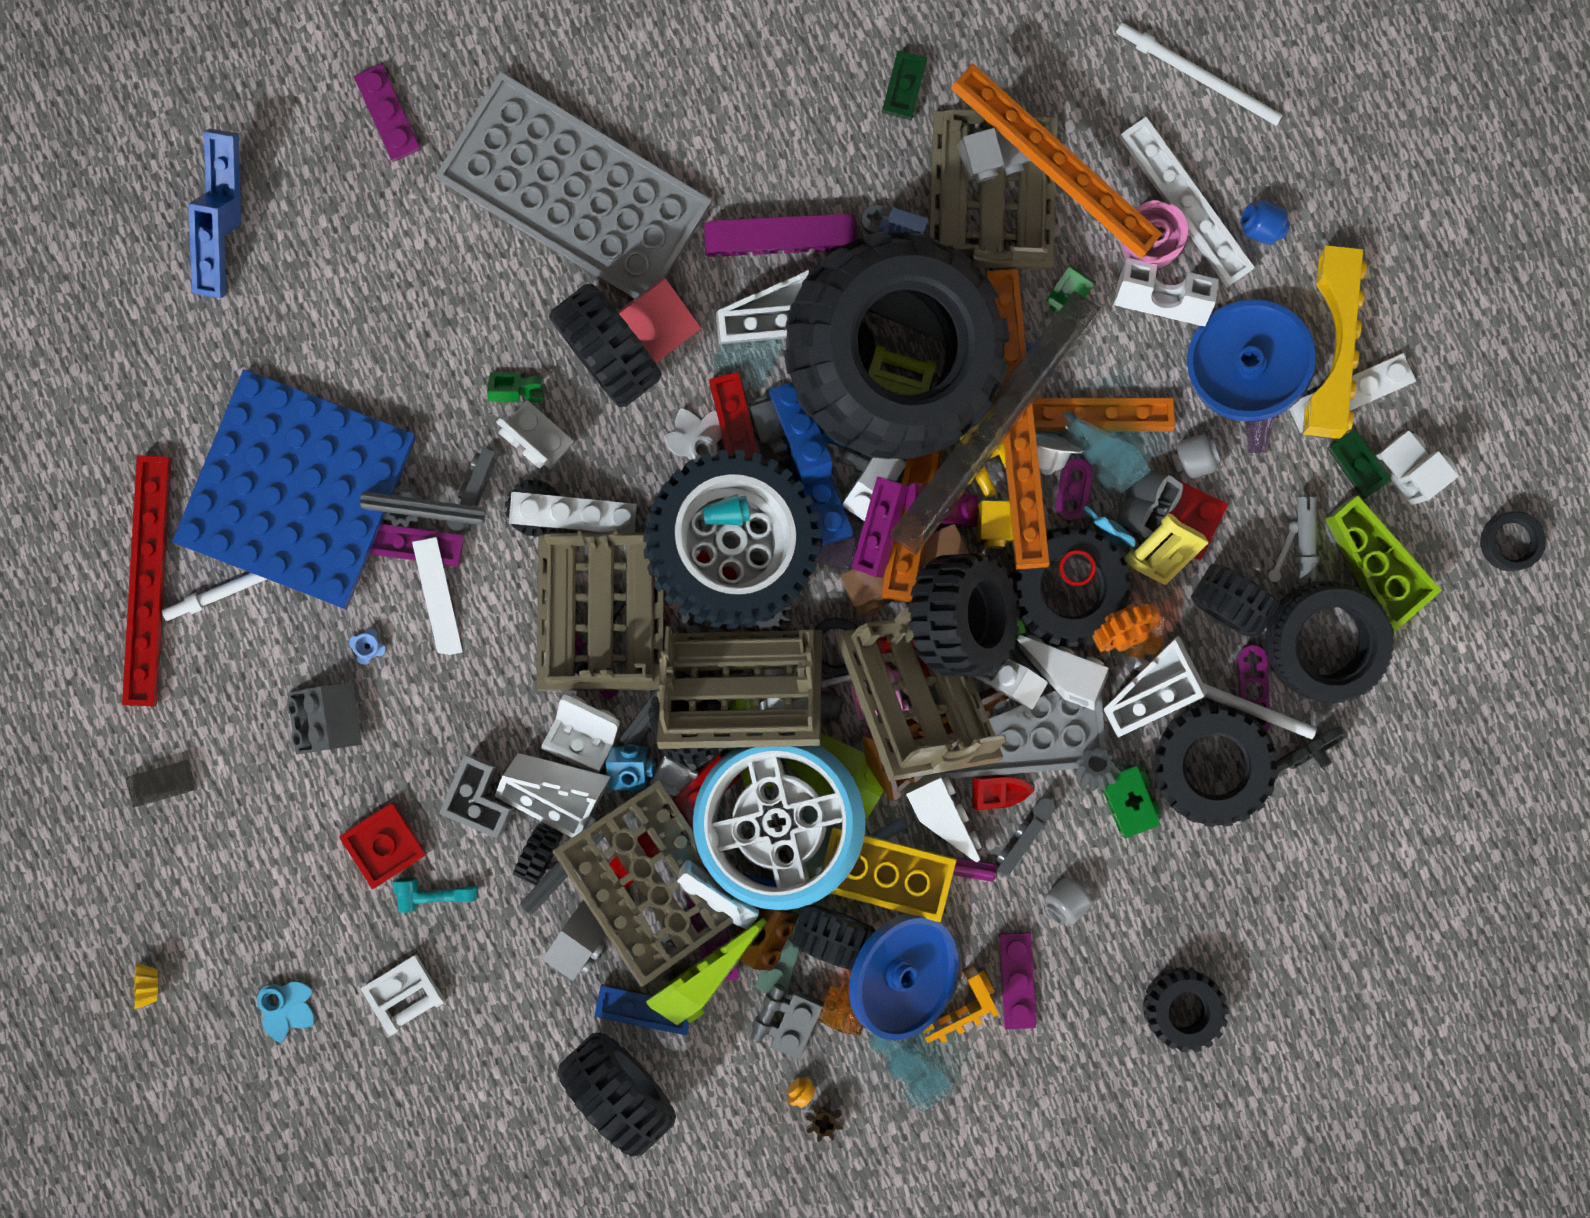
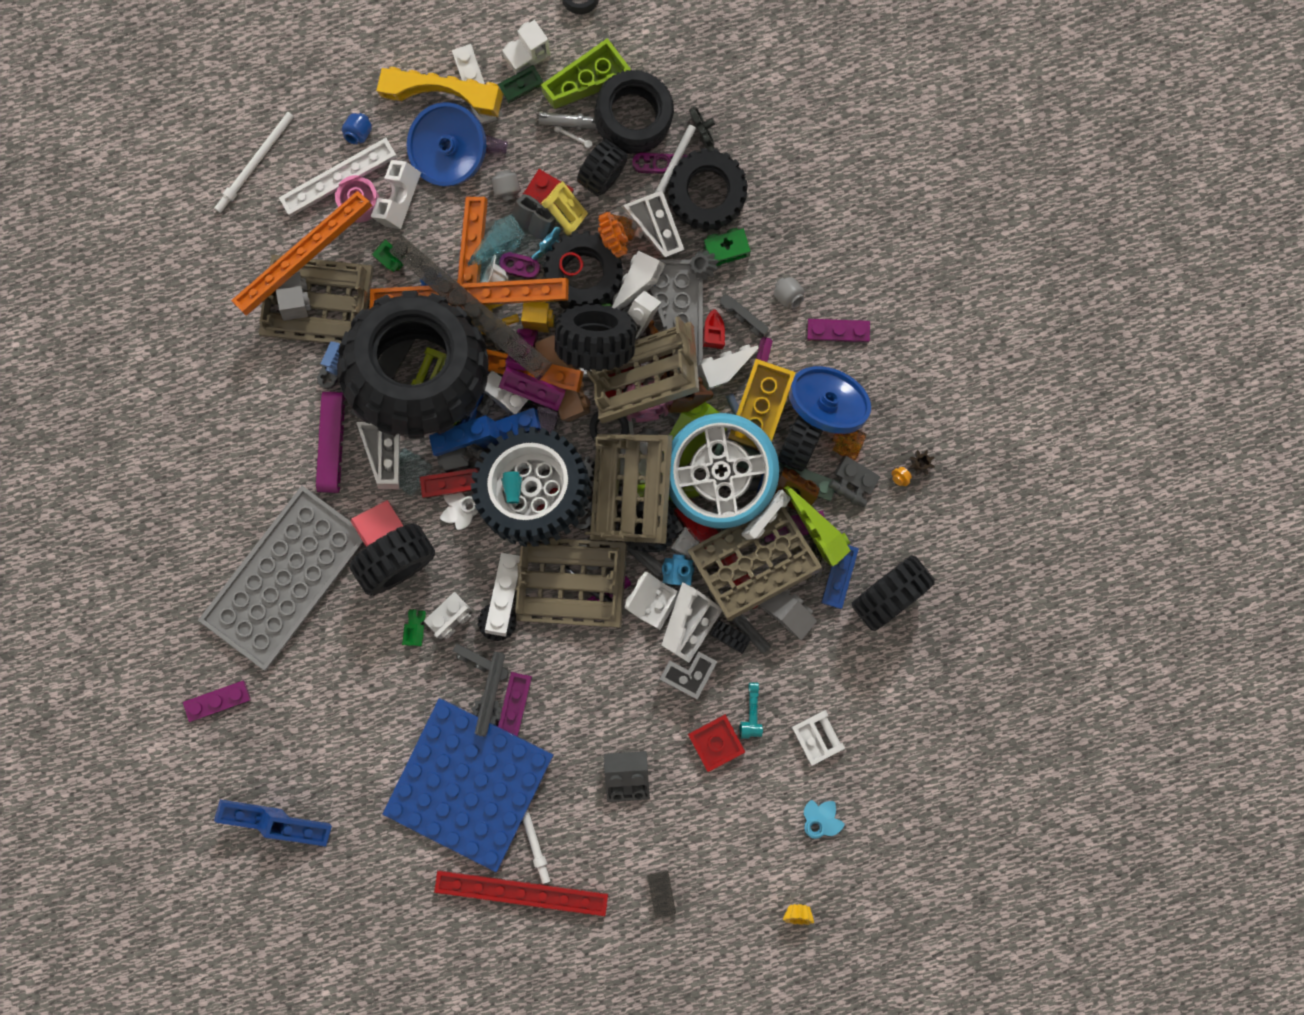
camera: 85 degrees left, 5 degrees down
(358, 643) = (586, 746): light blue plate -> none
(437, 596) = (550, 692): white sticker -> none
(904, 85) = (239, 352): dark green plate -> none
(918, 1071) = (896, 396): clear light blue slope -> none
(982, 989) = (849, 350): light orange plate -> none
(1208, 1023) = (870, 208): black tyre -> none

